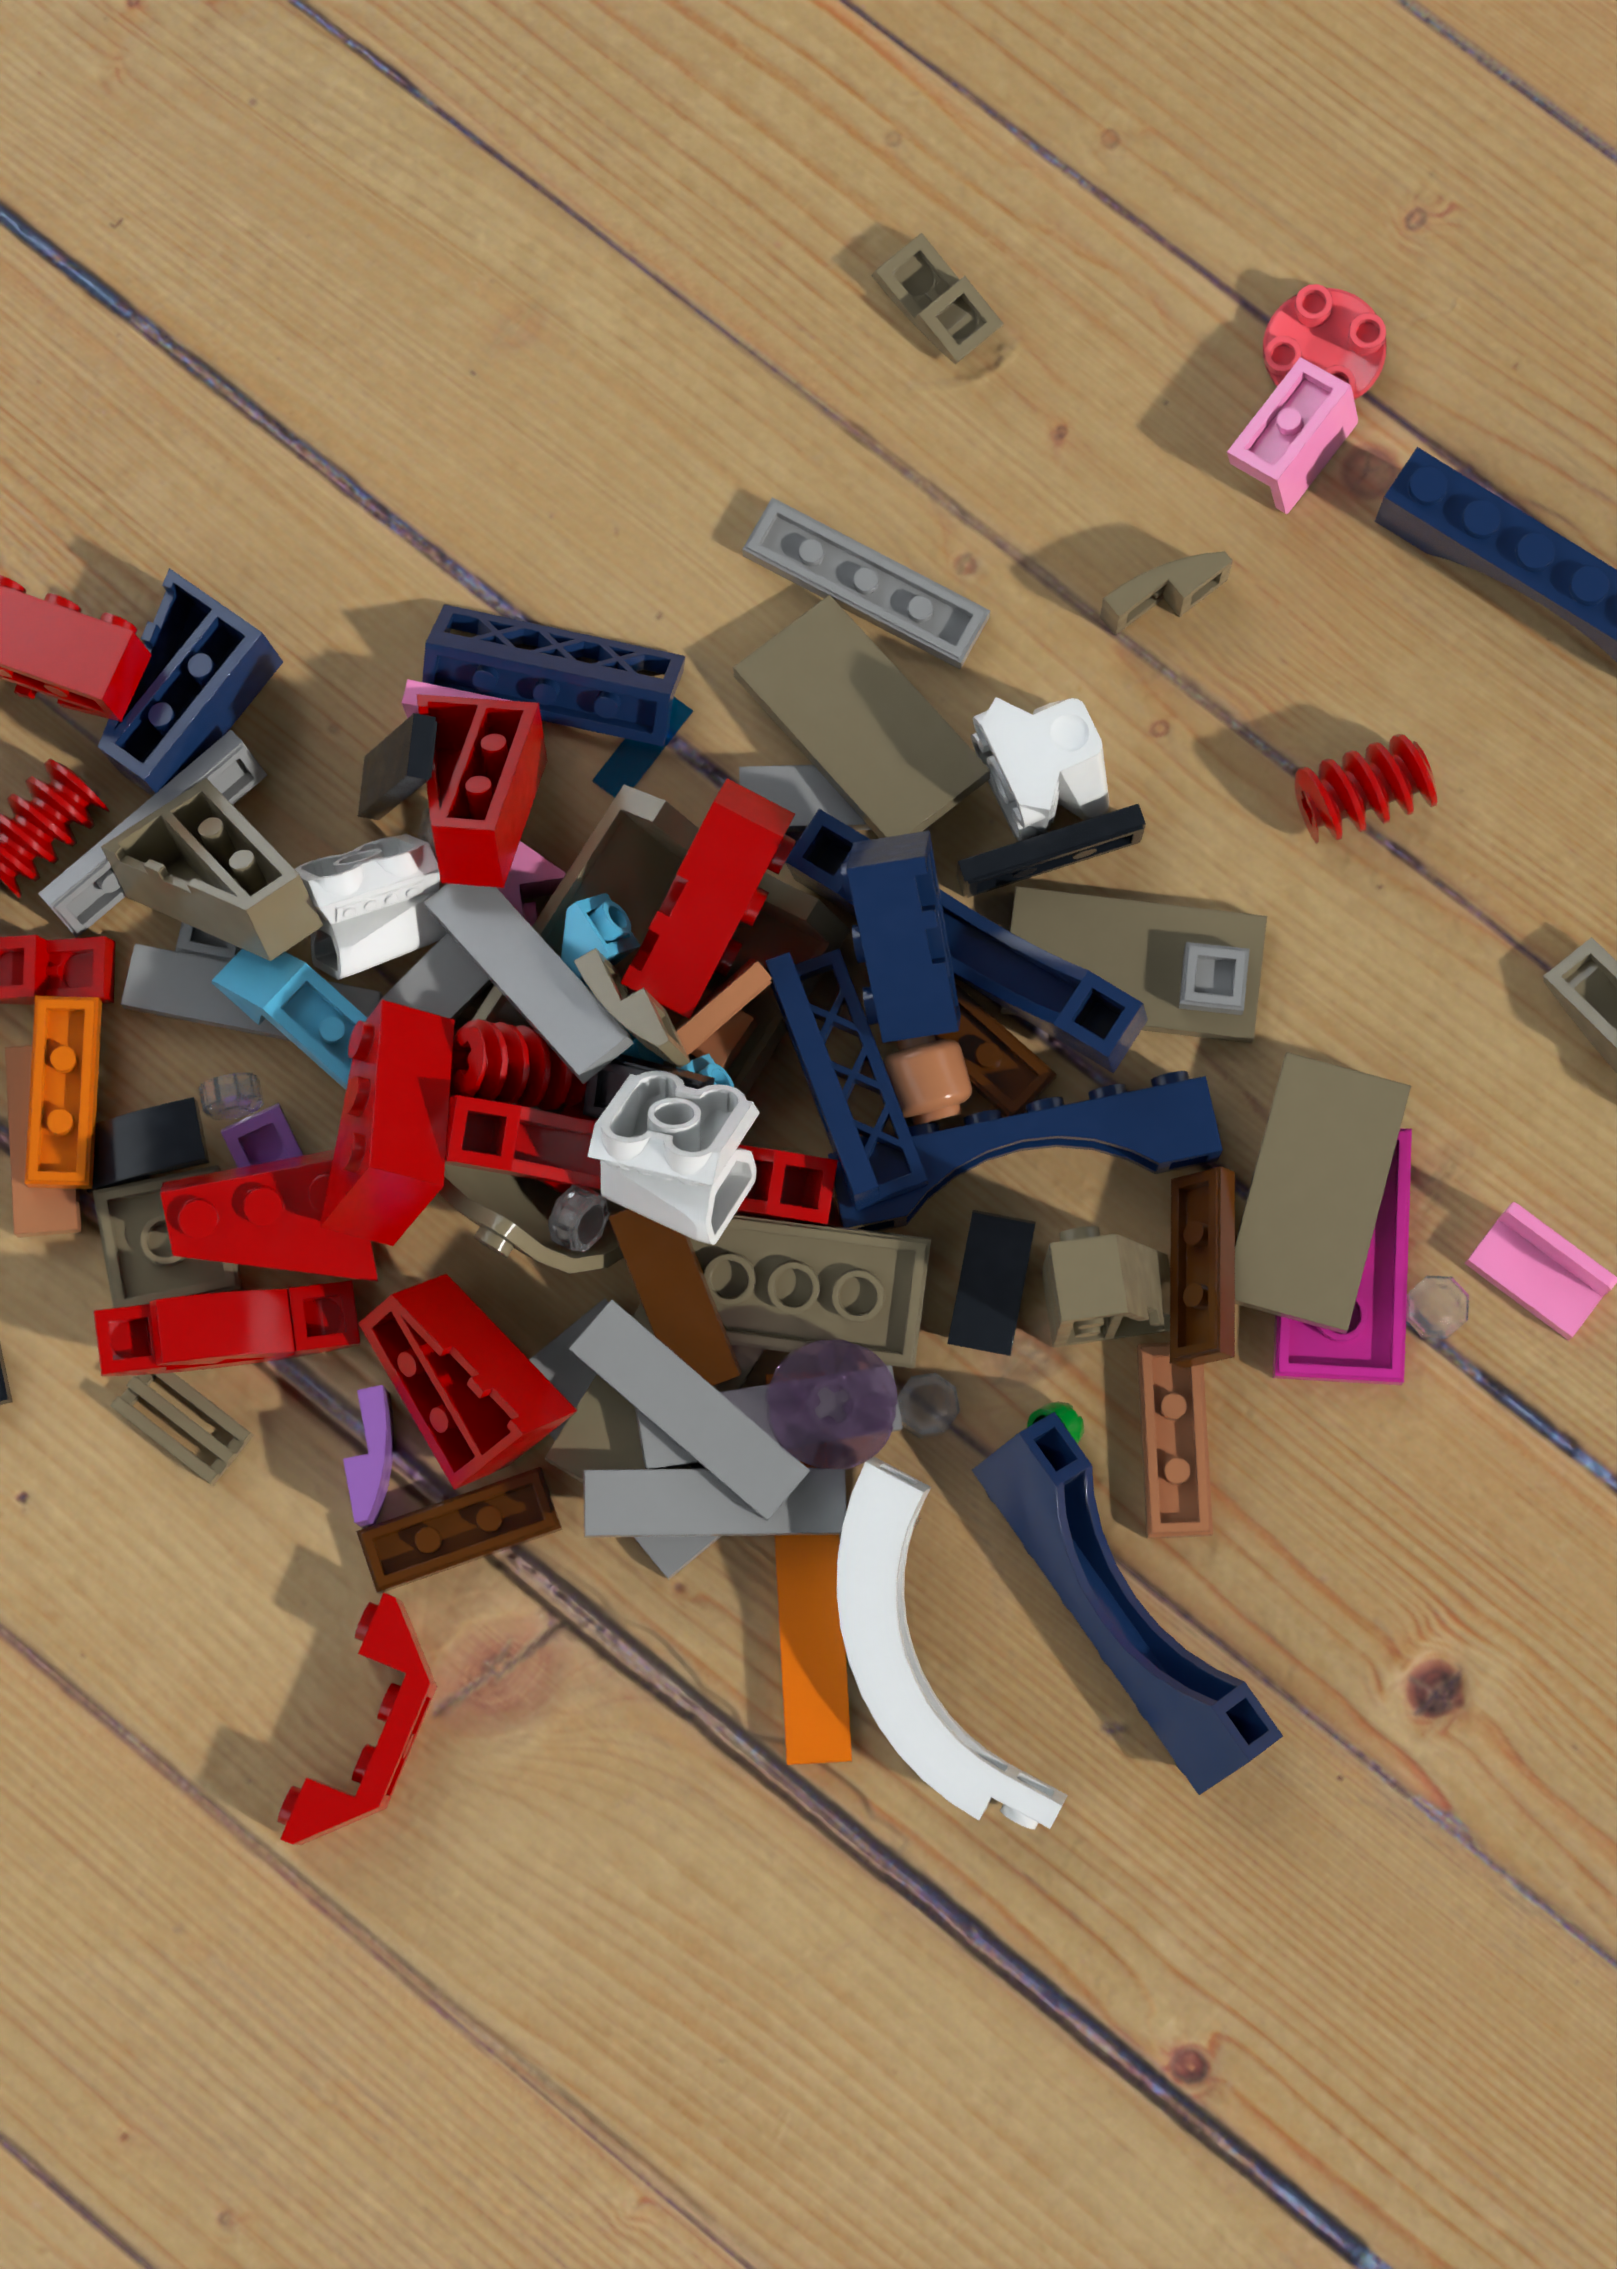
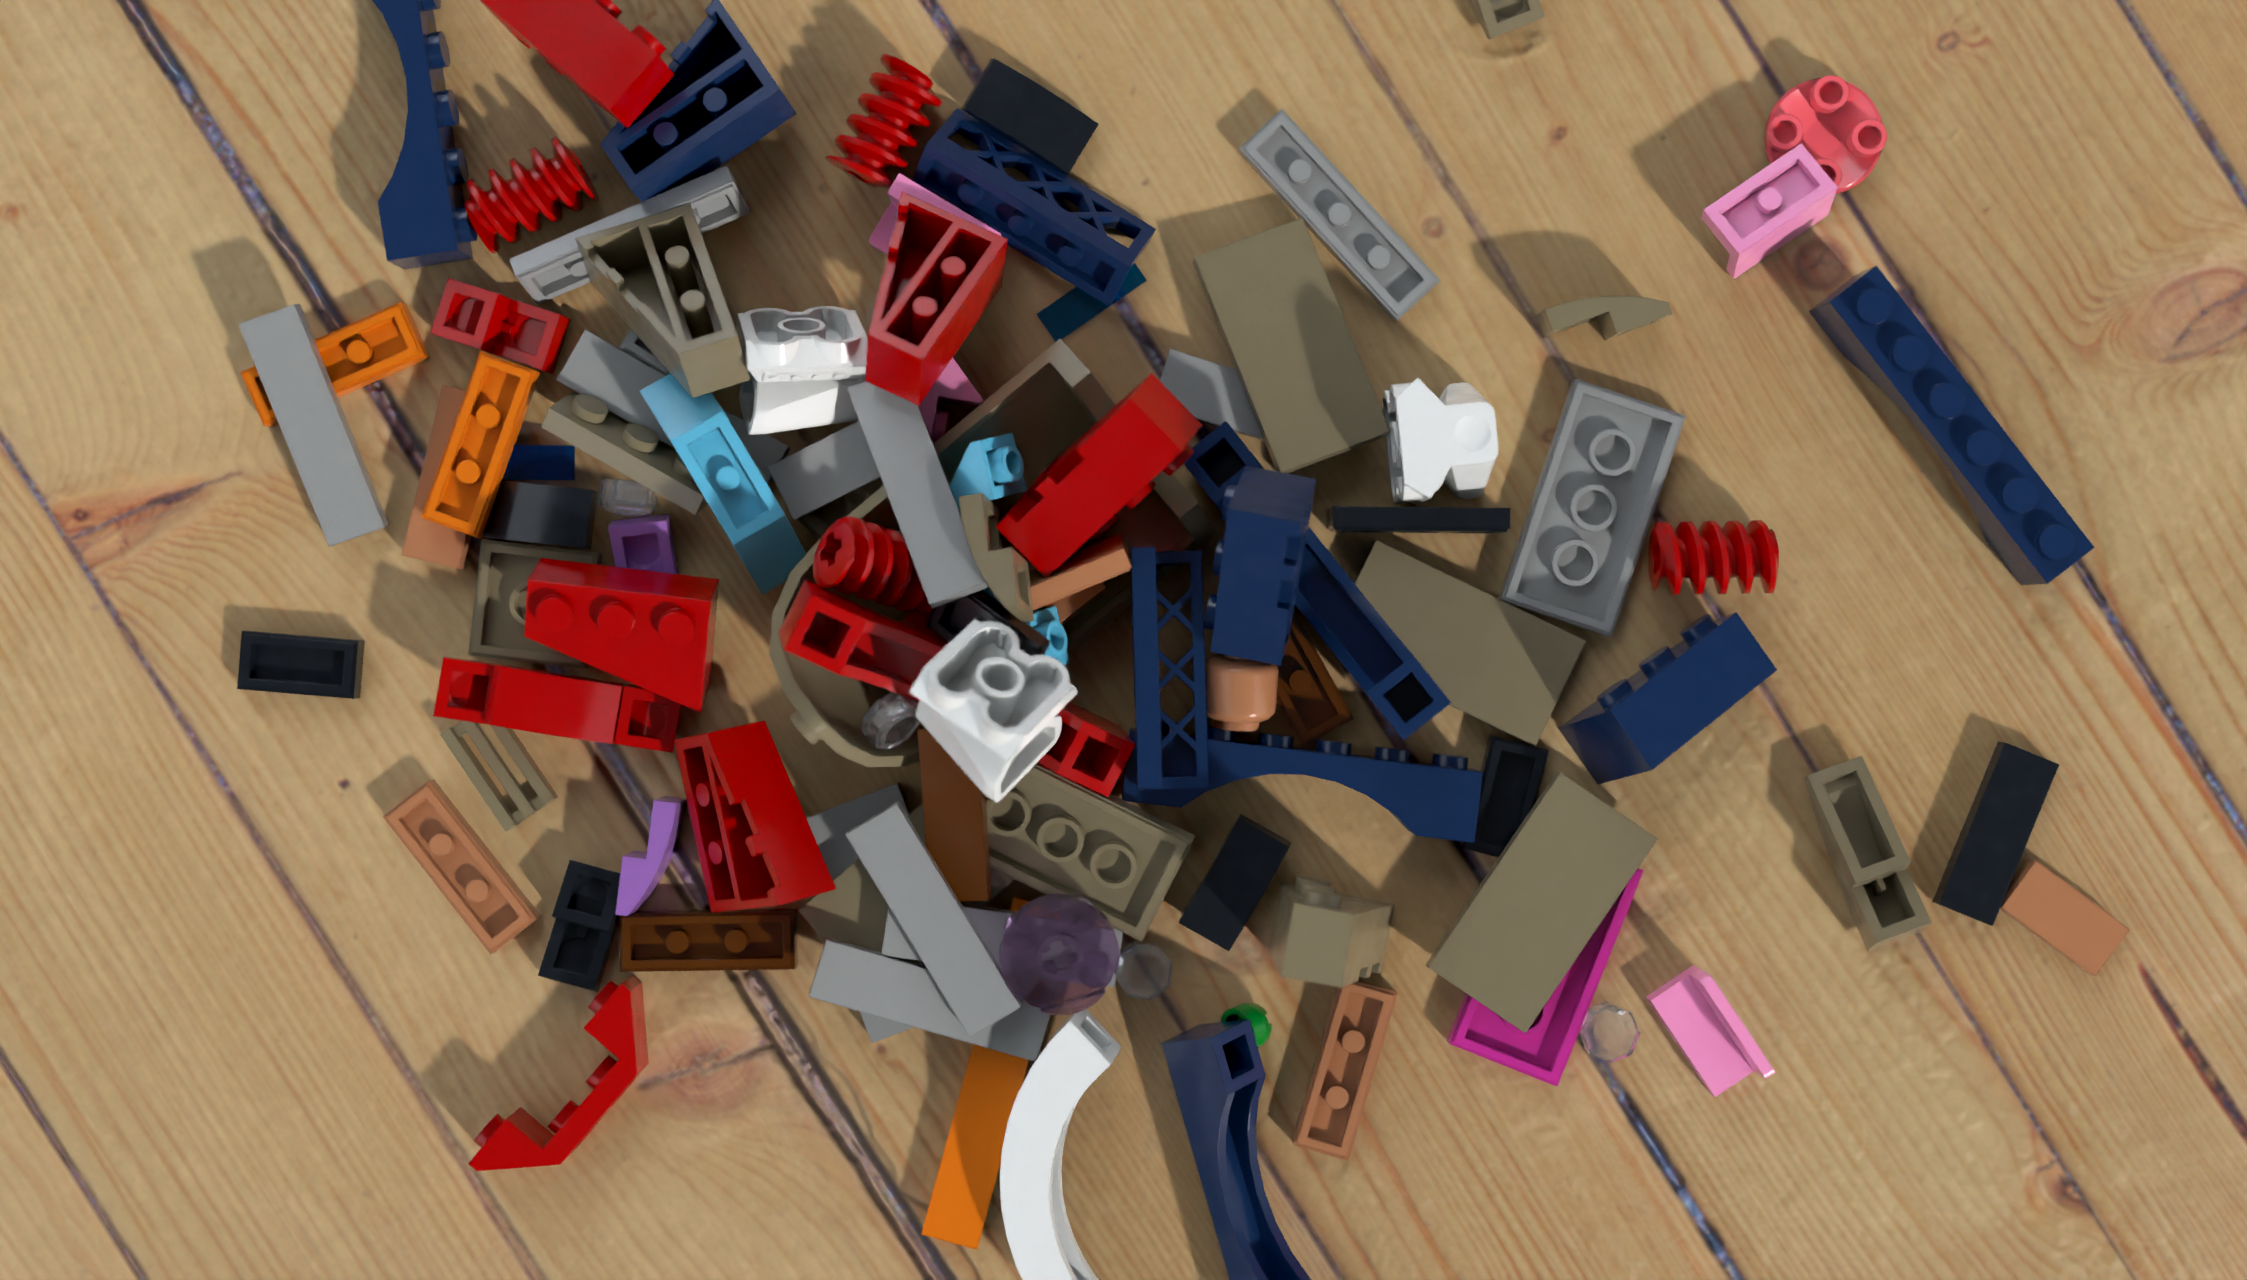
camera: 10 degrees right, 10 degrees up
(131, 1093) = (541, 463): none -> clear blue window
(174, 1540) = (461, 866): none -> nougat tile
(218, 1045) = (624, 447): none -> dark tan plate
(322, 1559) = (582, 927): none -> black slope
(376, 638) = (887, 123): none -> red piece
(391, 1124) = (751, 587): red wedge -> none
(397, 766) = (863, 255): black tile -> none
(520, 586) = (1029, 115): none -> black slope
(1202, 1267) = (1420, 935): reddish brown tile -> none
(1214, 978) = (1520, 683): light grey tile -> none
(1225, 784) = (1591, 507): none -> light grey tile
(1241, 1098) = (1507, 792): none -> black tile
(1368, 943) = (1669, 699): none -> dark blue wedge

